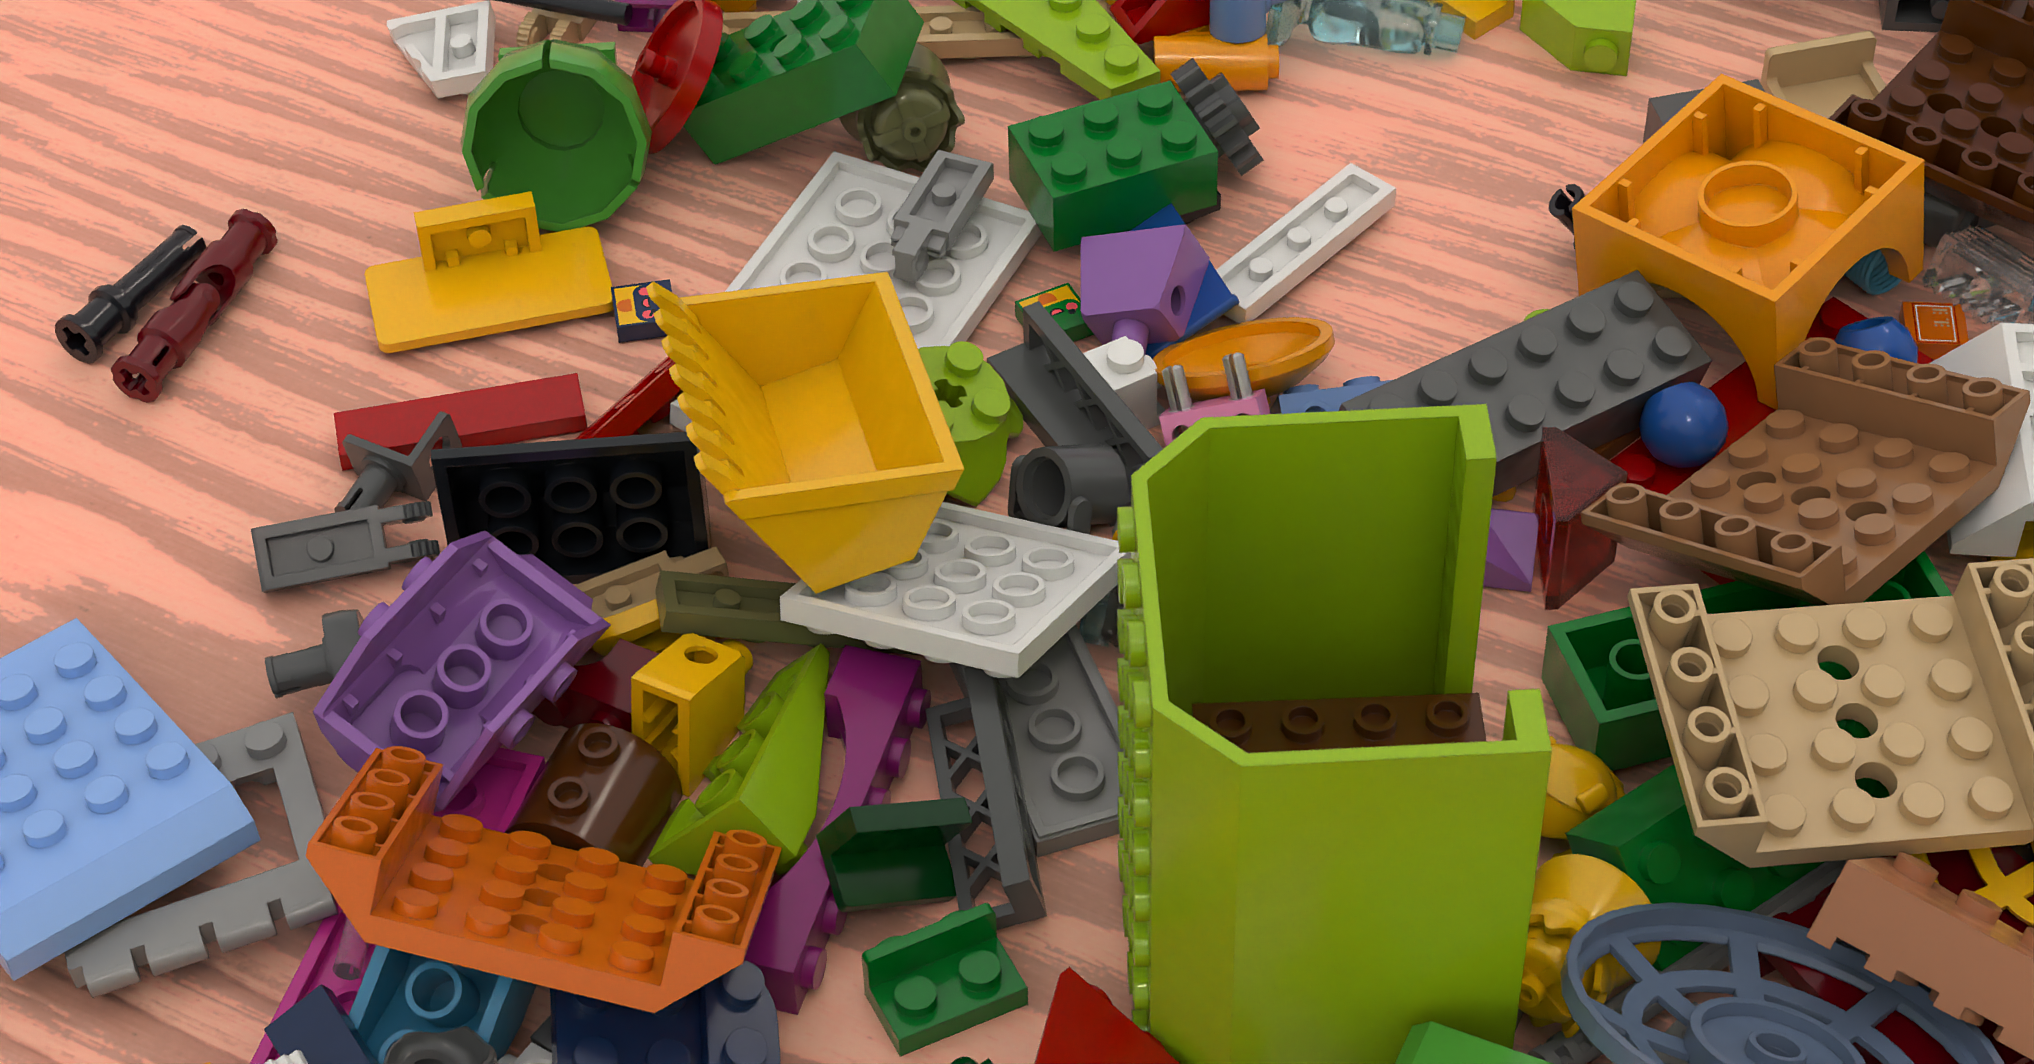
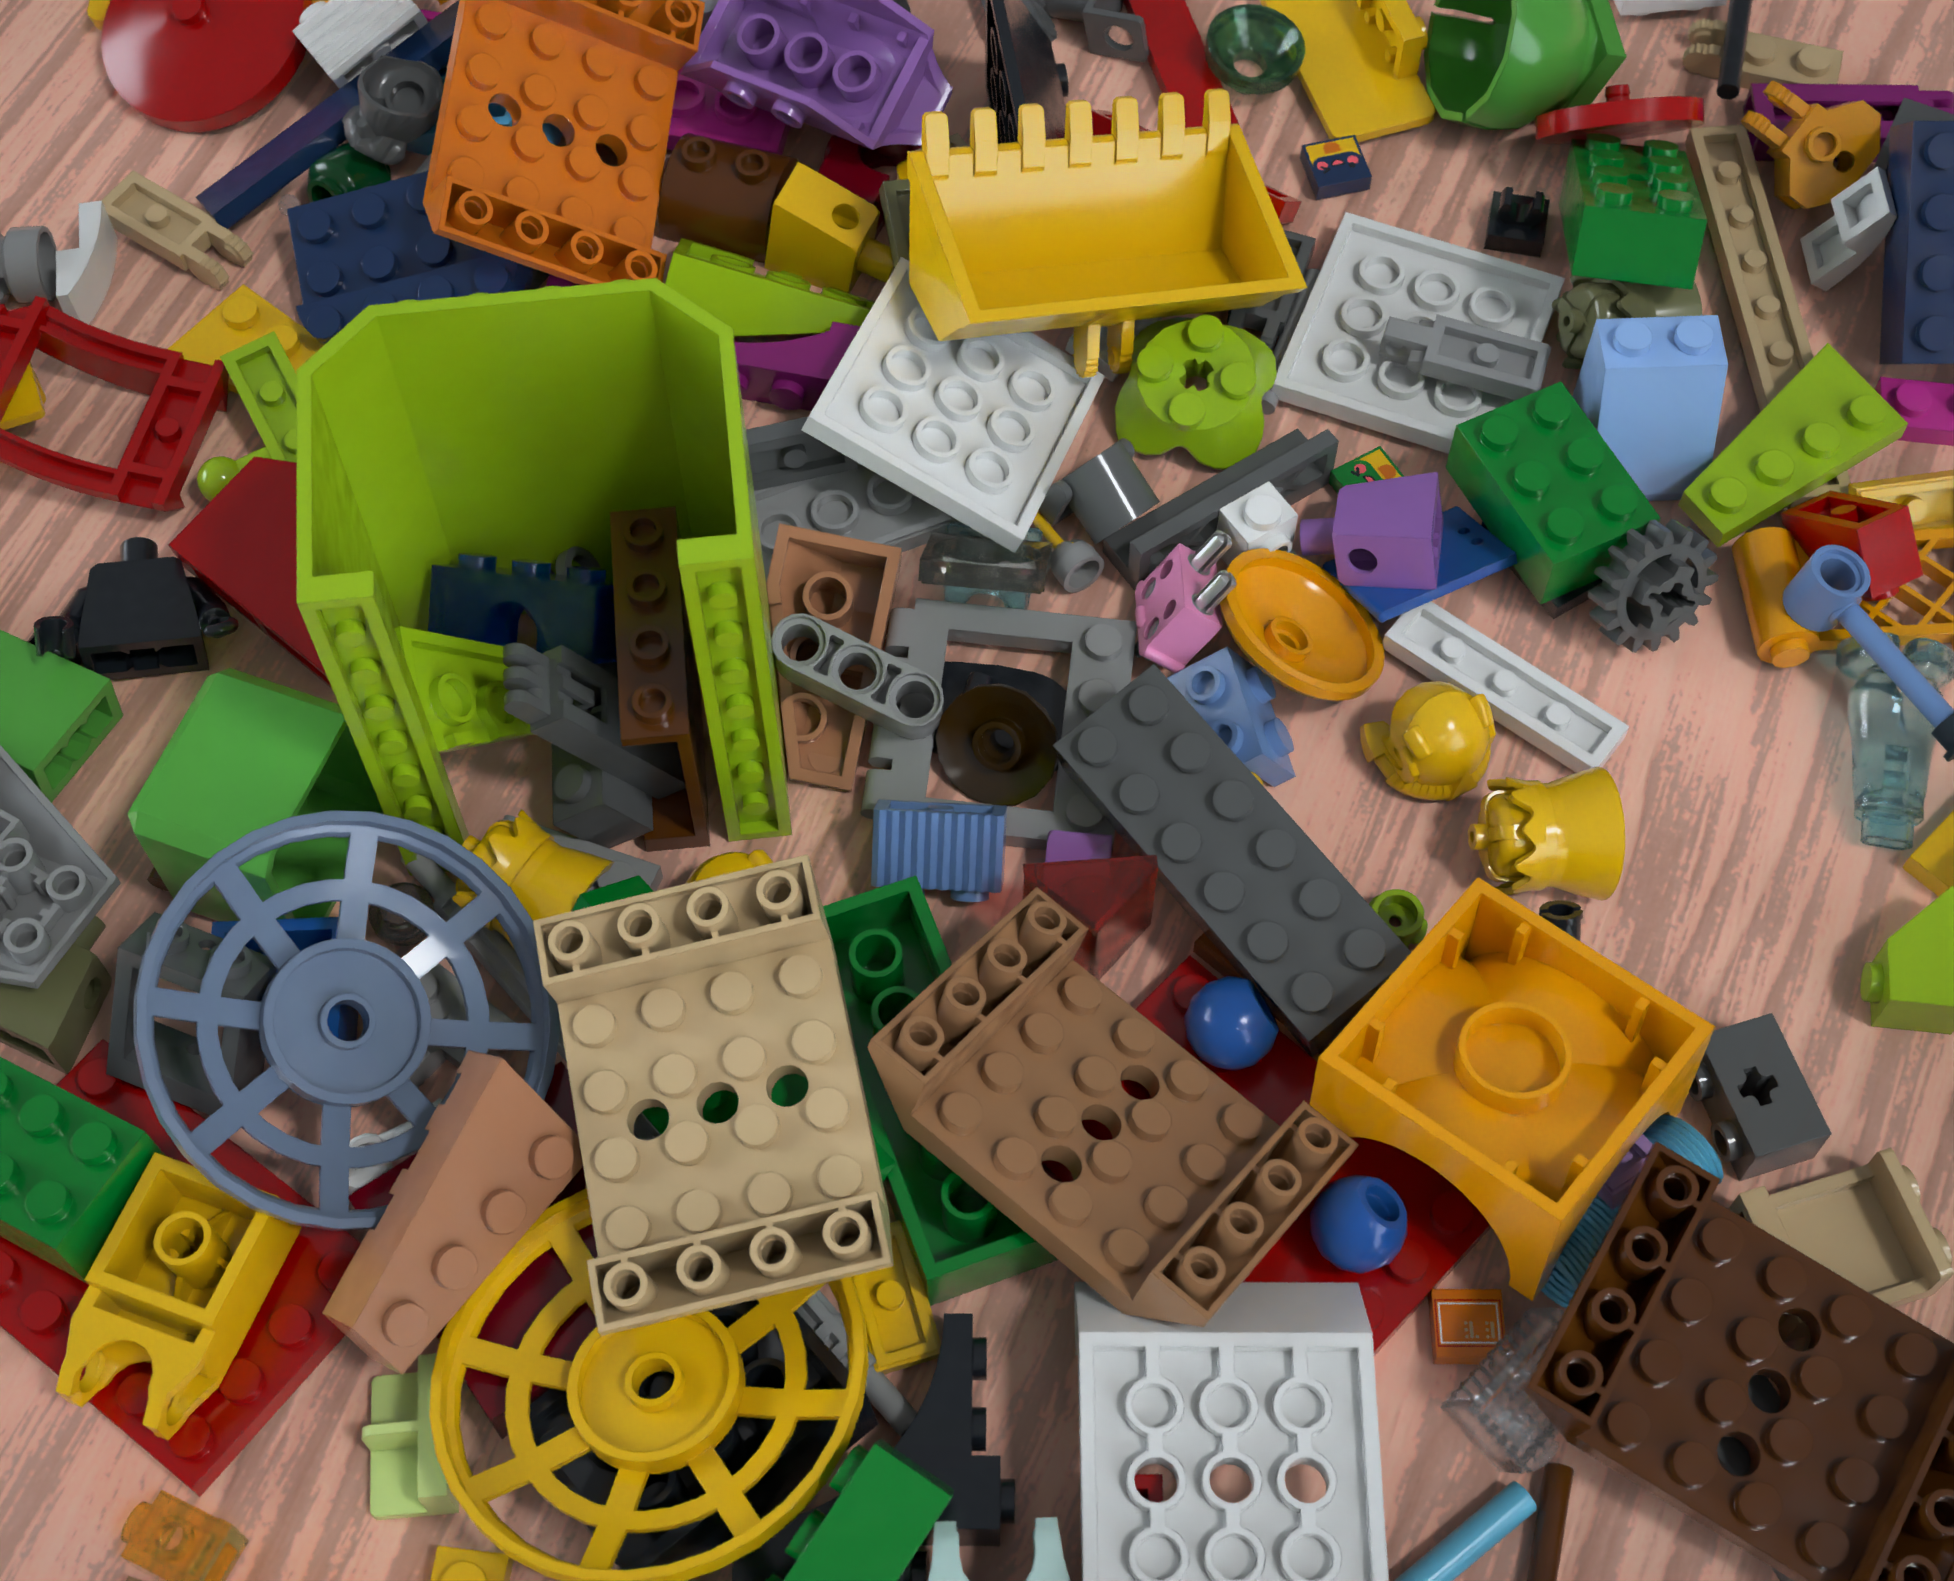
camera: 85 degrees right, 15 degrees up
(485, 335) = (1257, 36): none -> clear green piece
(743, 186) = (1517, 223): none -> black tile
(1007, 79) = (1656, 396): none -> light blue slope
(1369, 269) = (1434, 742): none -> yellow helmet
(1471, 209) = (1552, 834): none -> yellow hat
(1505, 640) = (942, 845): none -> medium blue brick

